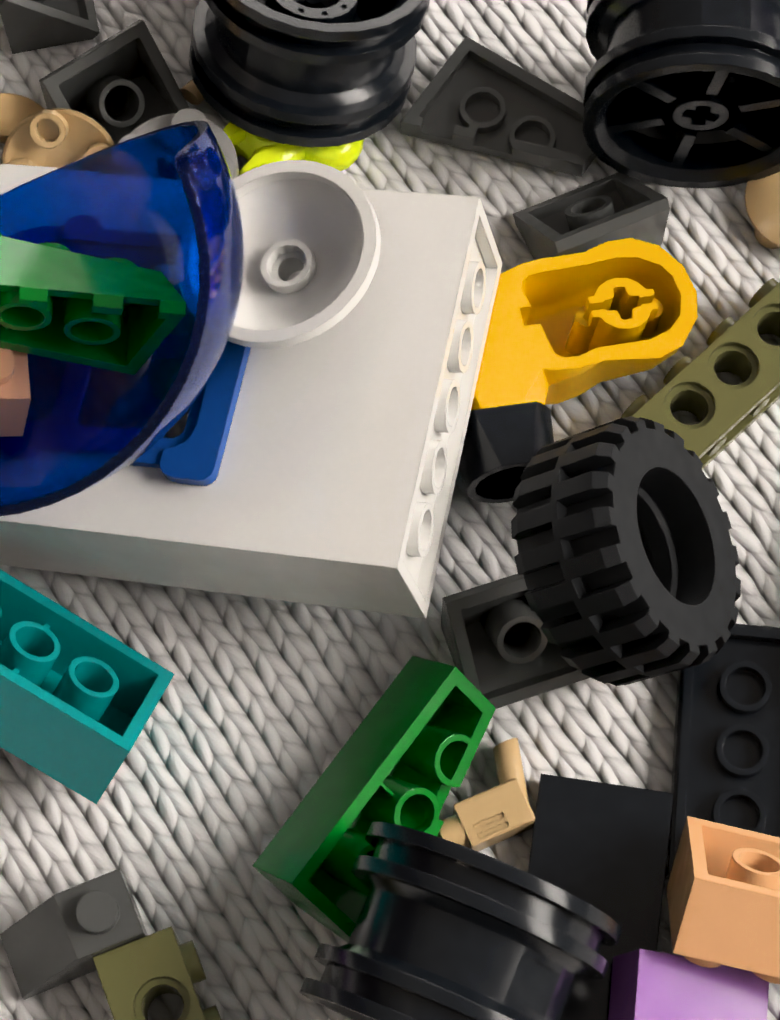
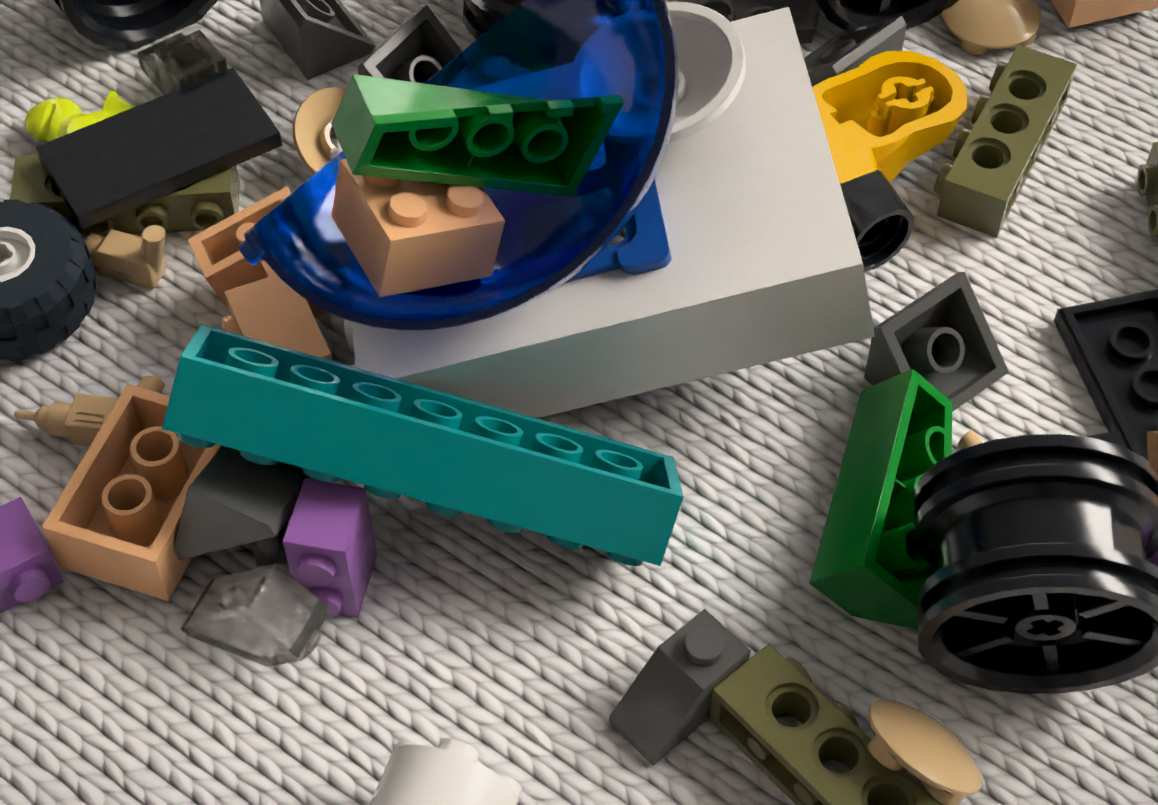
camera: 20 degrees left, 15 degrees down
(626, 552) = (1008, 246): black tyre -> none

